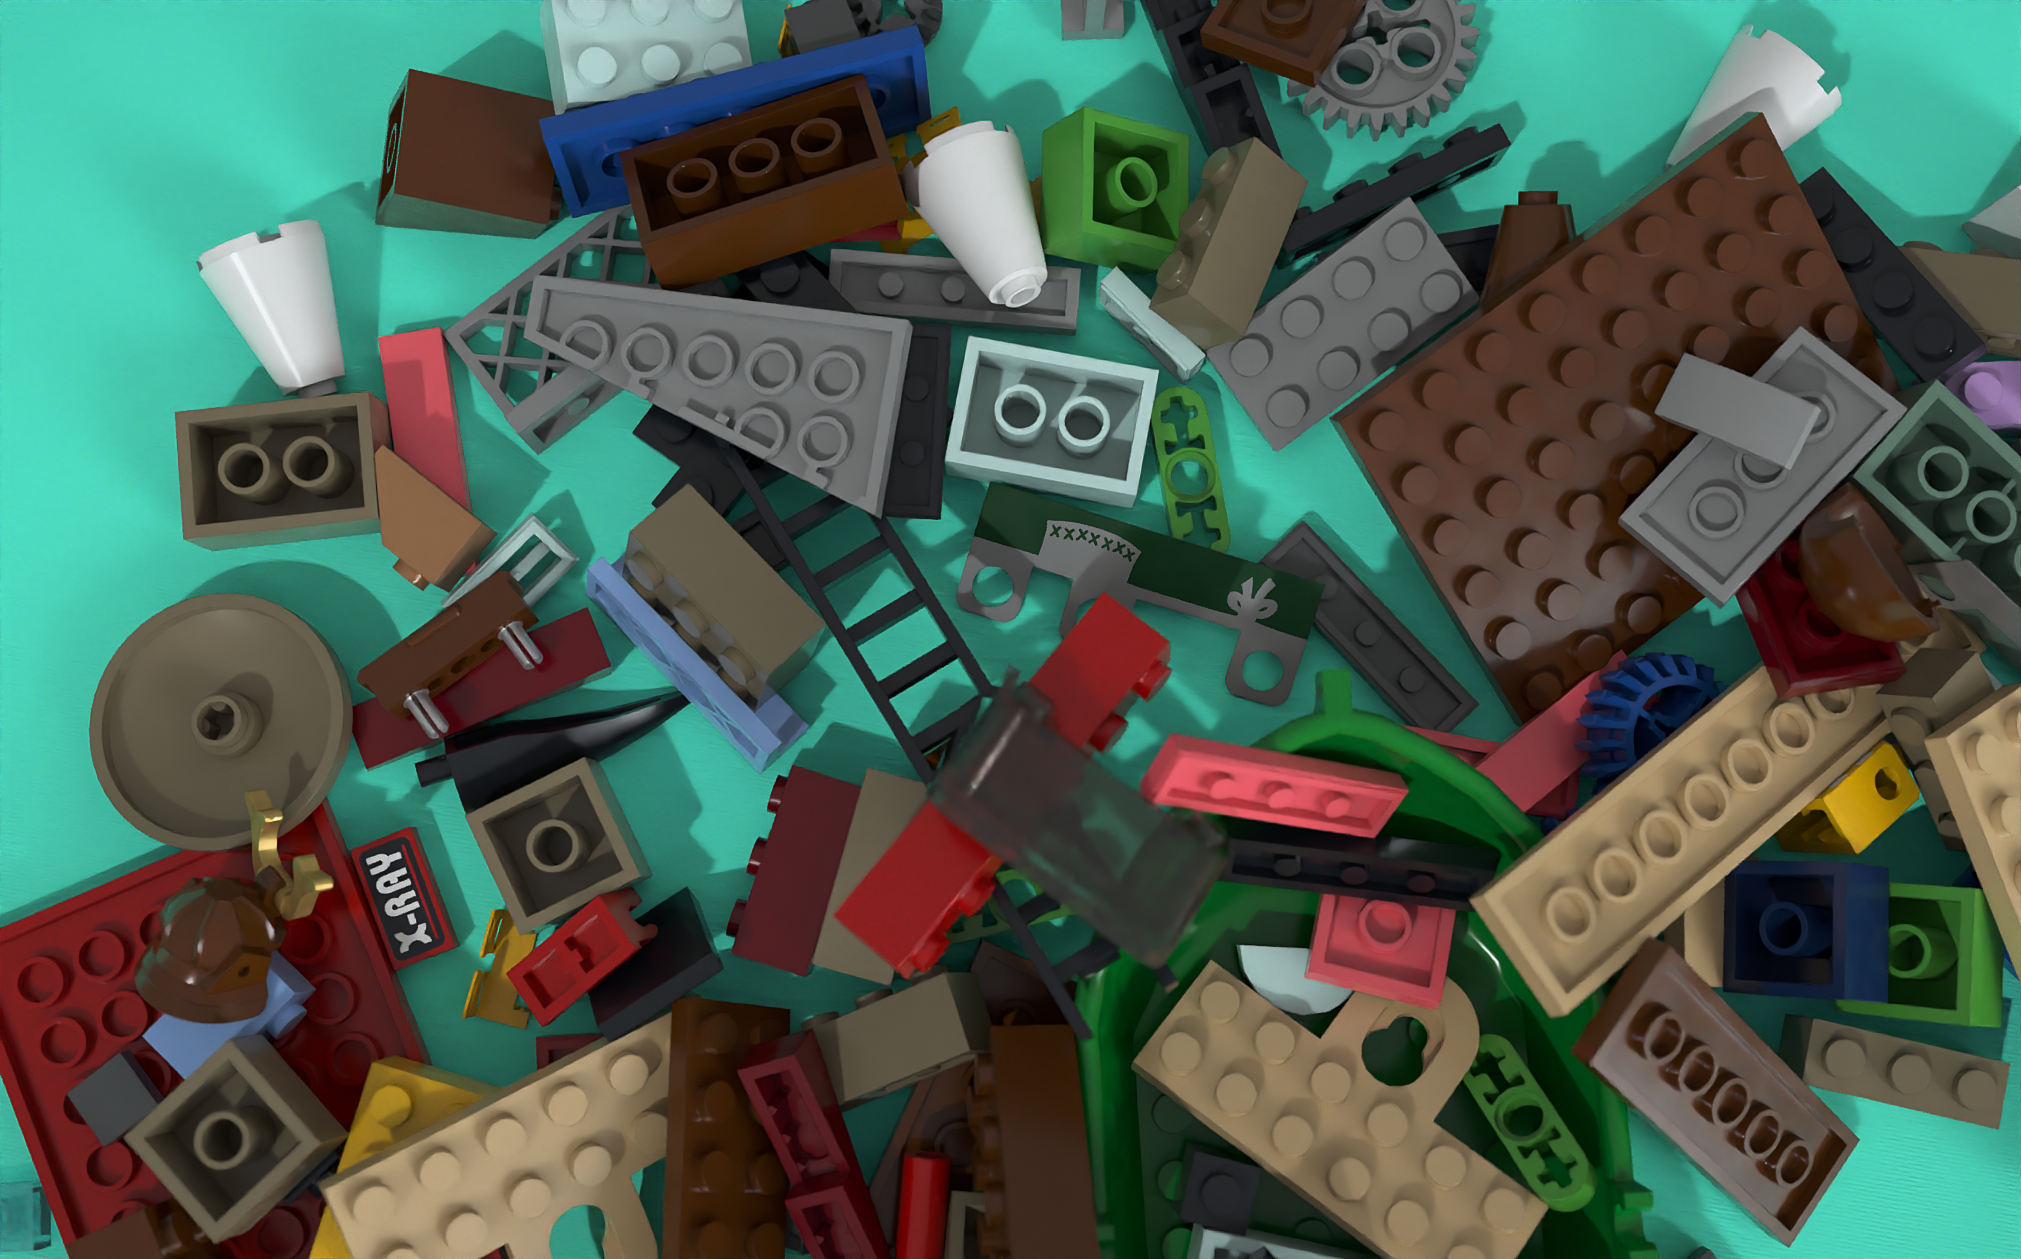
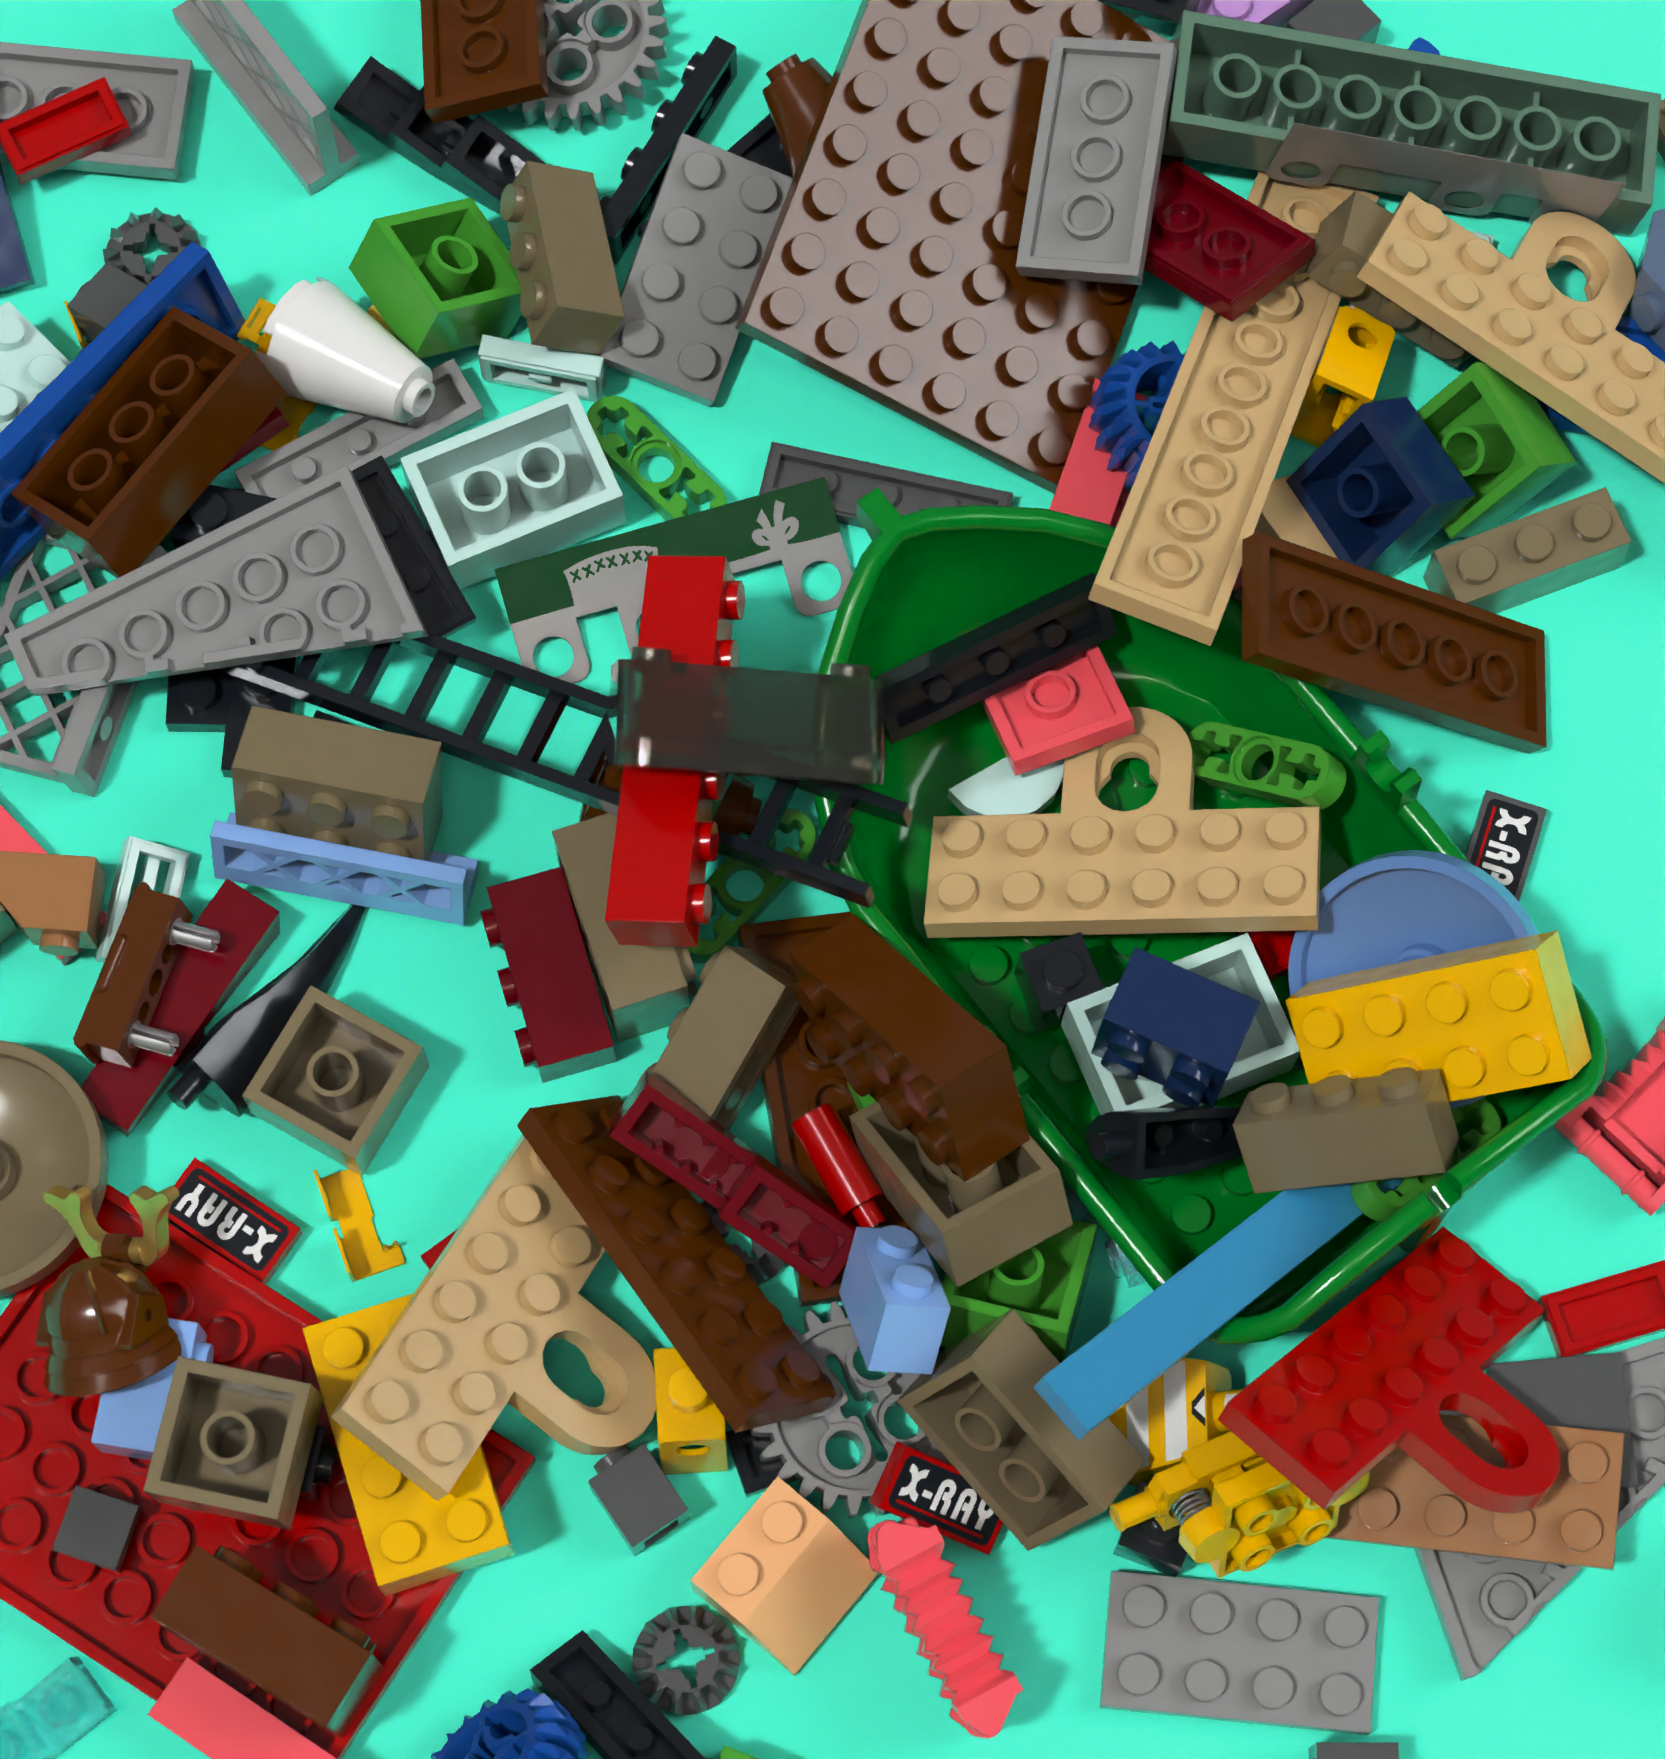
camera: 35 degrees left, 10 degrees down
(580, 954) = (413, 1150): red hinge -> none
(661, 971) = (477, 1120): black tile -> none
(1272, 786) = (882, 616): coral tile -> none
(1737, 411) = (1046, 125): light grey slope -> none
(1857, 573) = (1222, 188): reddish brown cylinder -> none

